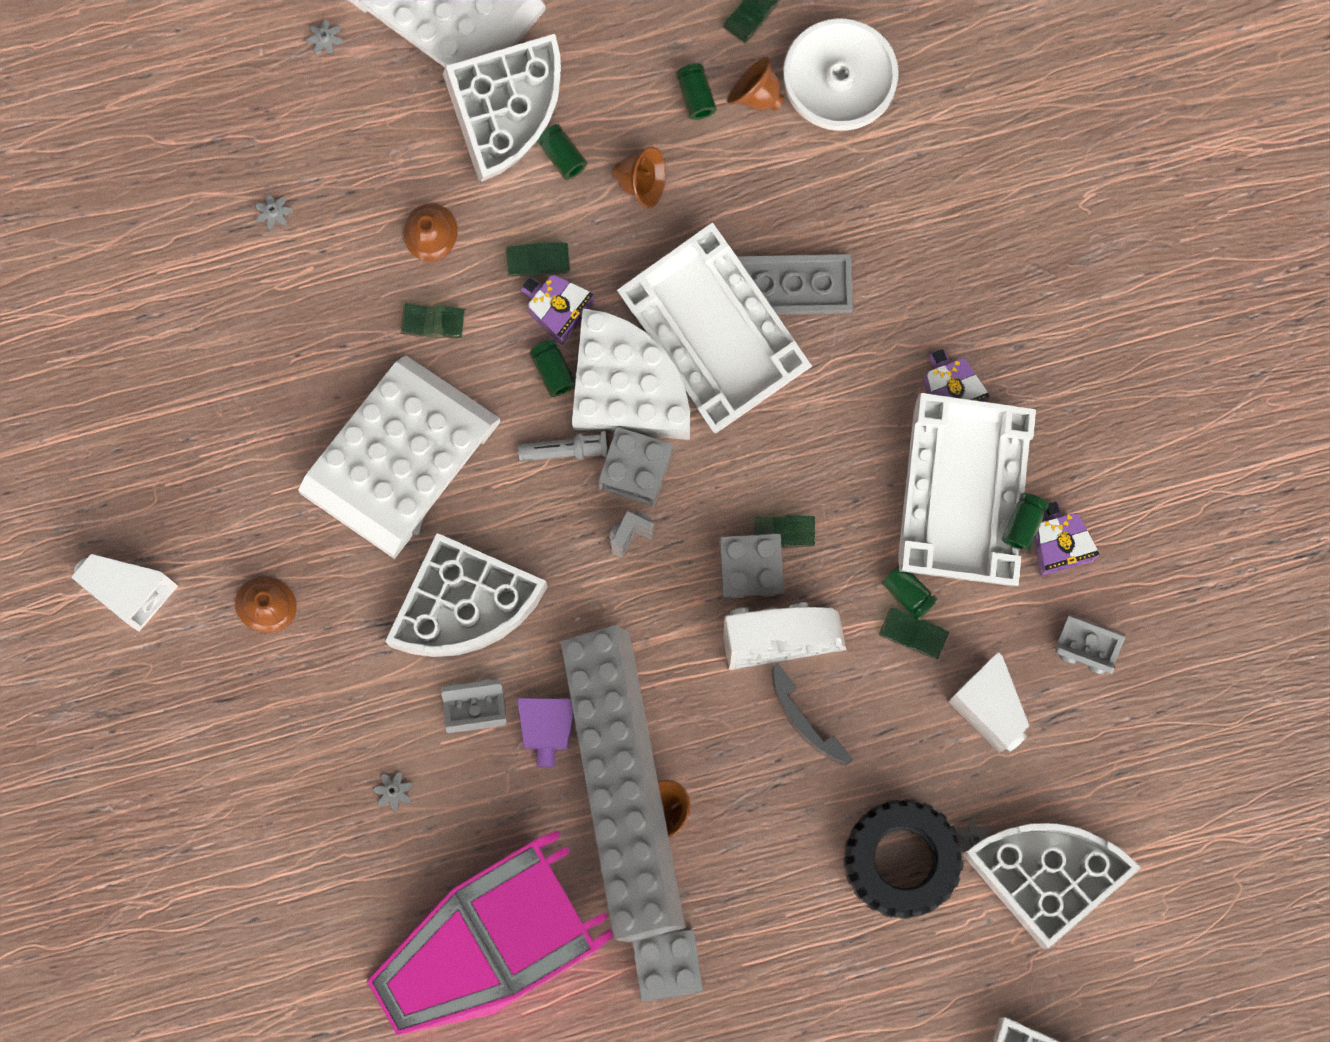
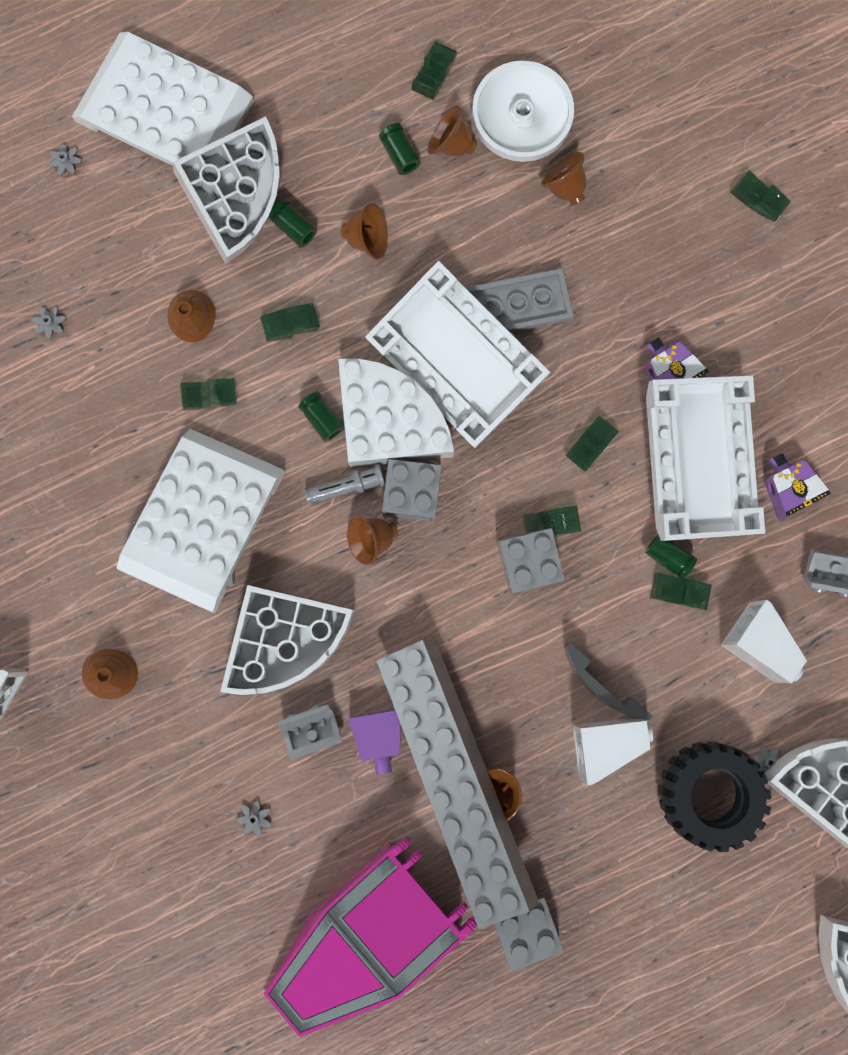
camera: 15 degrees left, 5 degrees up
(557, 305) = (315, 360): torso -> none
(579, 509) = (369, 538): none -> dark orange hat
(623, 532) = (412, 553): light grey bracket -> none
(780, 634) = (566, 621): white brick -> none
(797, 780) = (609, 746): none -> white slope
(847, 453) = (592, 443): none -> clear green slope
(876, 157) = (567, 179): none -> dark orange hat
(1025, 522) = (762, 477): dark green piece -> none
(1090, 216) = (757, 196): none -> clear green slope

